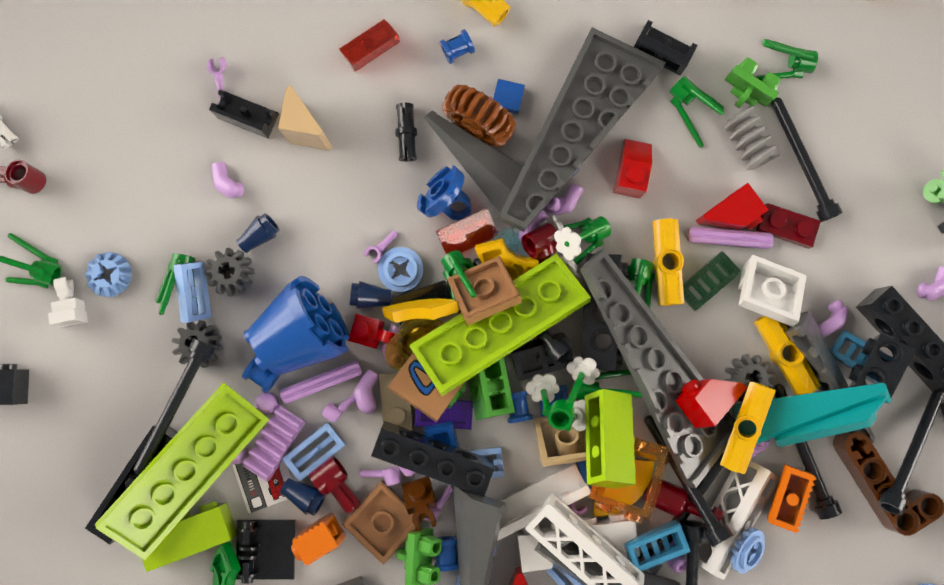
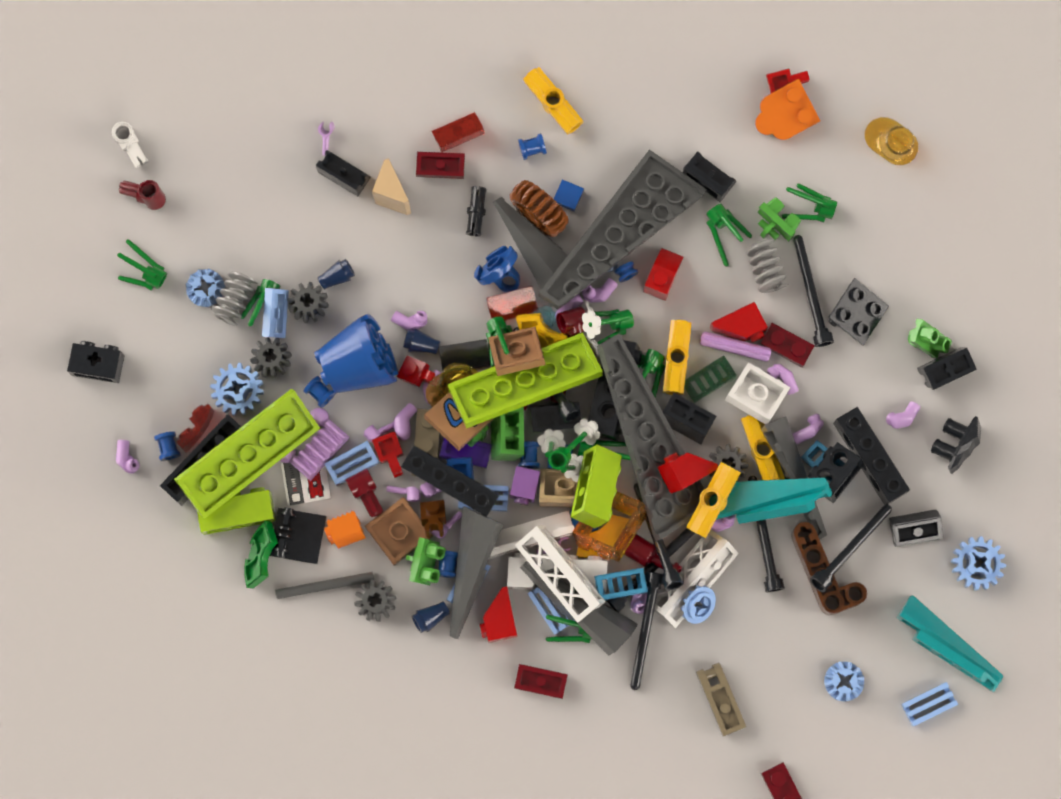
camera: 15 degrees right, 5 degrees down
(47, 494) = (124, 459): none -> lavender arm
(68, 310) = (168, 311): white piece -> none
(93, 470) = (167, 446): none -> blue bush
(126, 436) = (201, 419): none -> clear red slope
(141, 282) = (233, 297): none -> light grey piece
(157, 379) = (246, 387): none -> light blue gear
(199, 353) = (275, 362): black piece -> none
(223, 183) = (314, 229): lavender arm -> none
(303, 496) = (337, 497): dark blue cone -> none
(320, 382) = (367, 407): lavender axle -> none
(354, 274) = (416, 321): none -> lavender arm
(354, 429) = (388, 451): none -> red plate
(355, 85) = (440, 165): none -> dark red plate
(381, 246) = (437, 304): lavender hand -> none
(400, 256) = (452, 314): light blue gear -> none
(420, 309) = (461, 358): yellow tile -> none
(520, 444) = (524, 485): none -> medium lavender brick
(591, 172) = (626, 271): none -> blue bush
(696, 331) = (688, 418): none -> black hinge
(790, 498) = (741, 566): orange brick -> none
(793, 261) = (785, 375): none -> lavender arm
(860, 173) = (858, 311): none -> hinge

